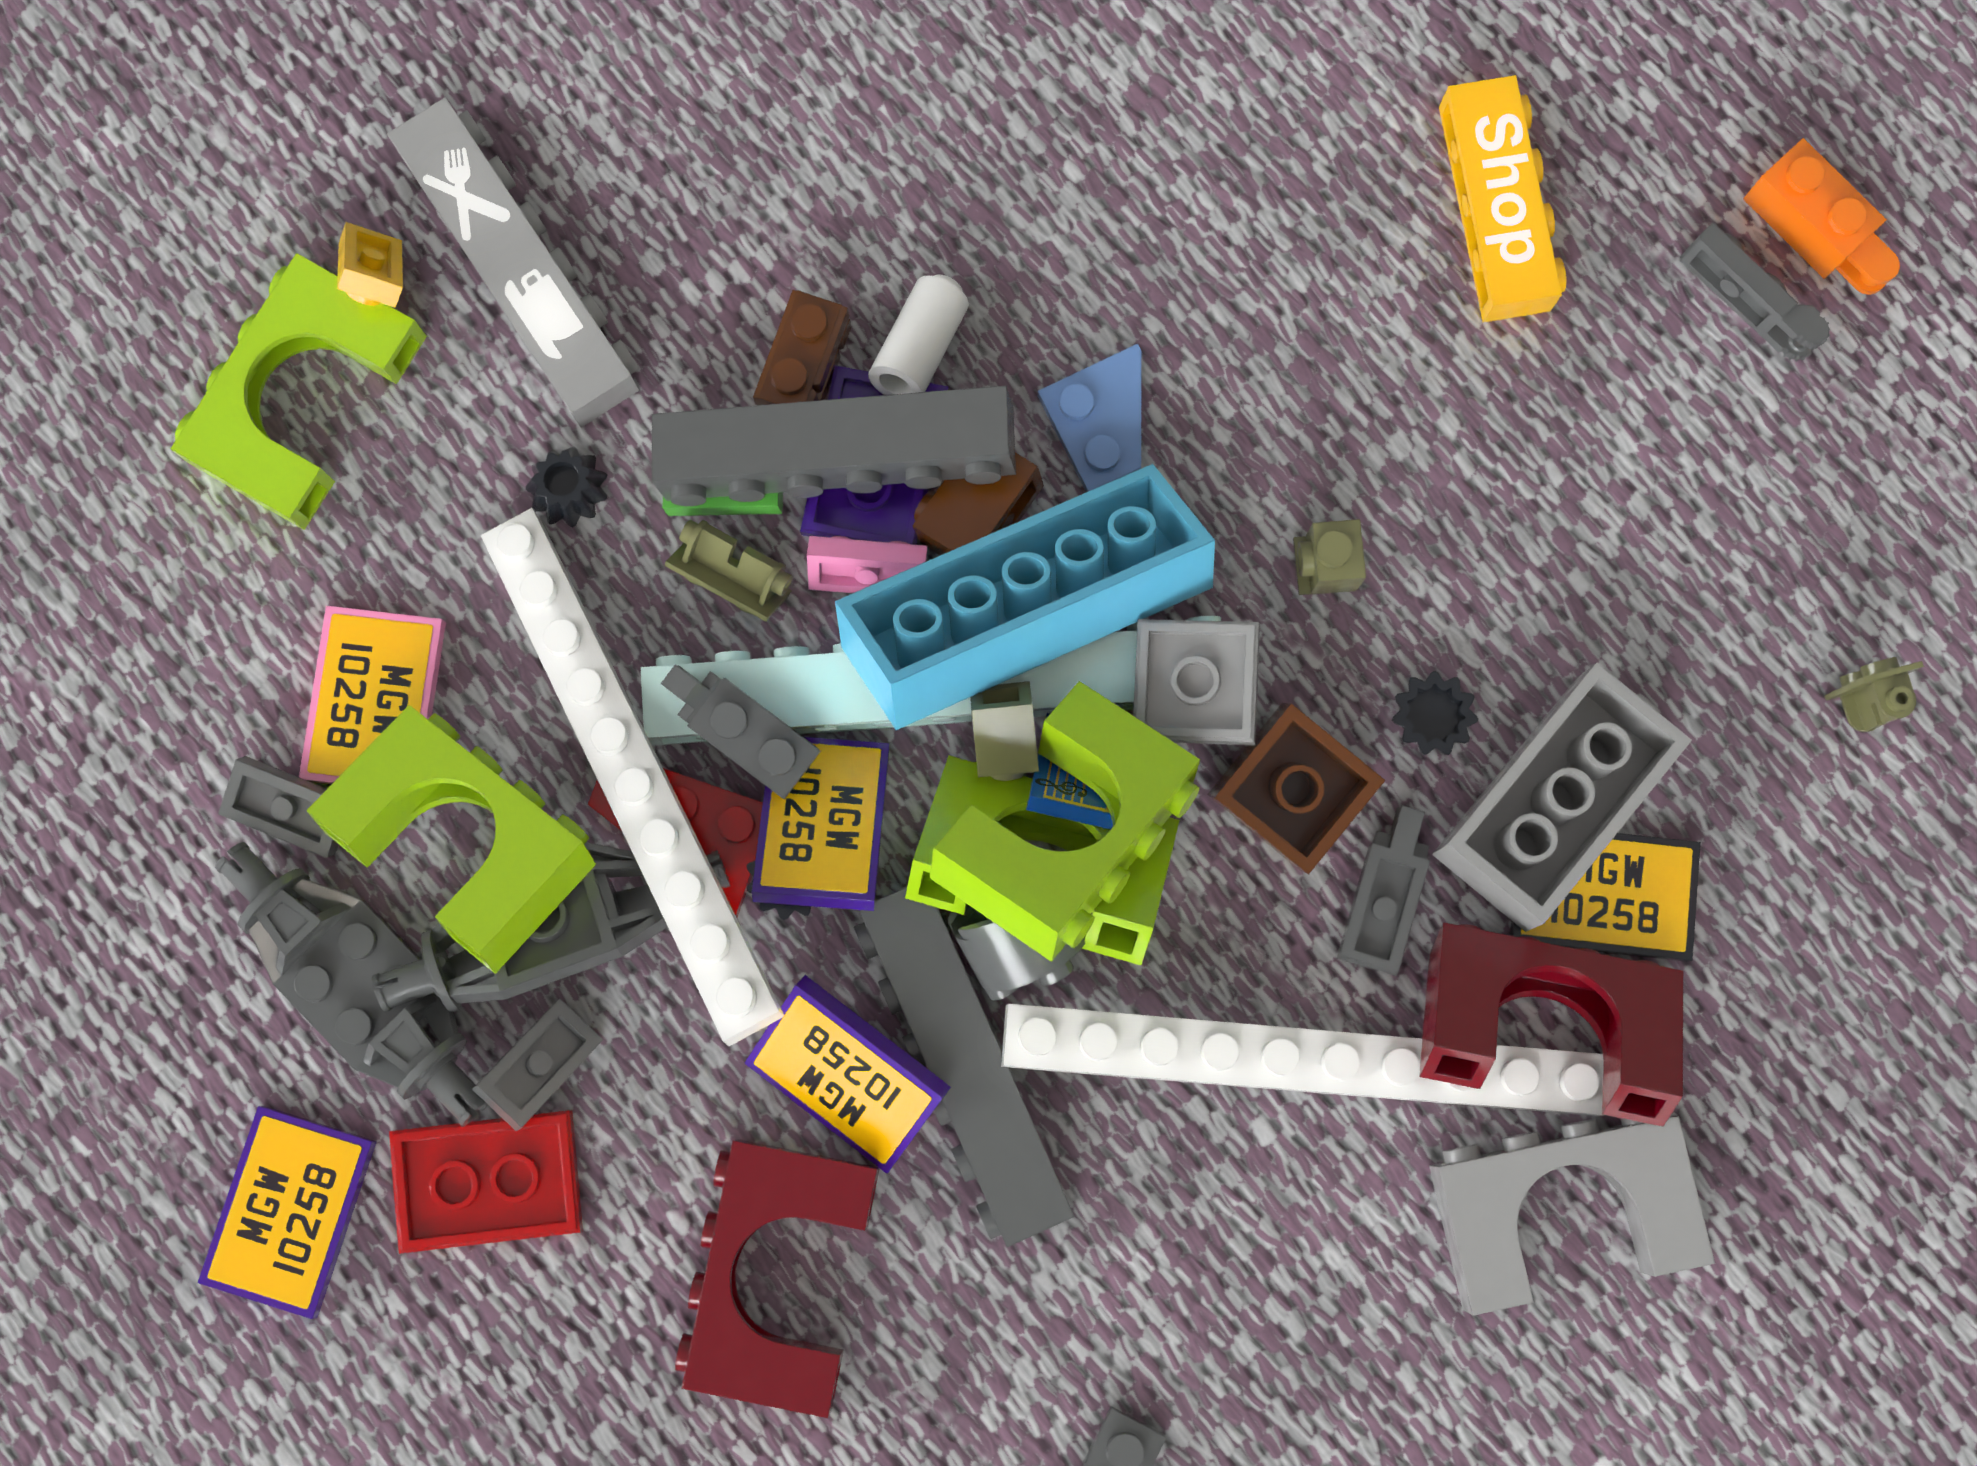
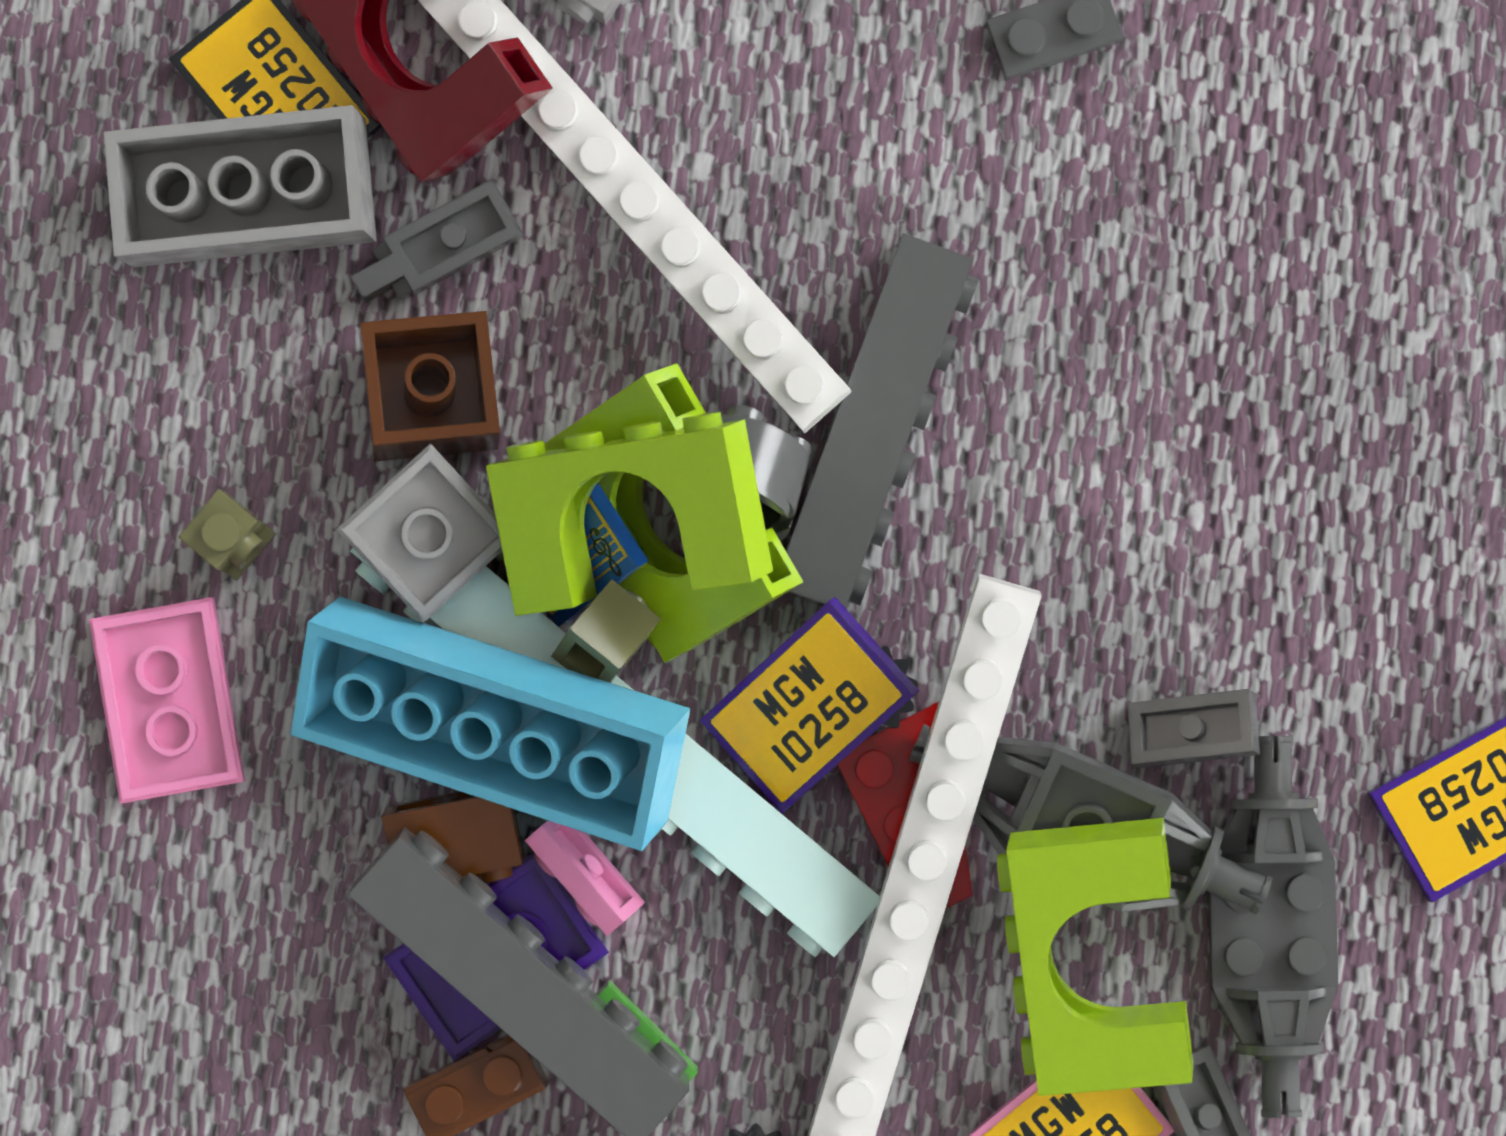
camera: 140 degrees left, 5 degrees up
(485, 1182) = (1314, 681): red tile -> none
(727, 1348) = (1245, 383): dark red arch -> none
(742, 729) = (802, 830): dark grey hinge -> none
(752, 584) = (688, 947): olive hinge -> none
(847, 1074) = (969, 495): tile -> none
(919, 336) = (369, 1014): white brick -> none
(1099, 417) = (290, 817): medium blue wing -> none
(1259, 416) = (167, 700): none -> bright pink tile
(1435, 713) = (268, 341): black piece -> none

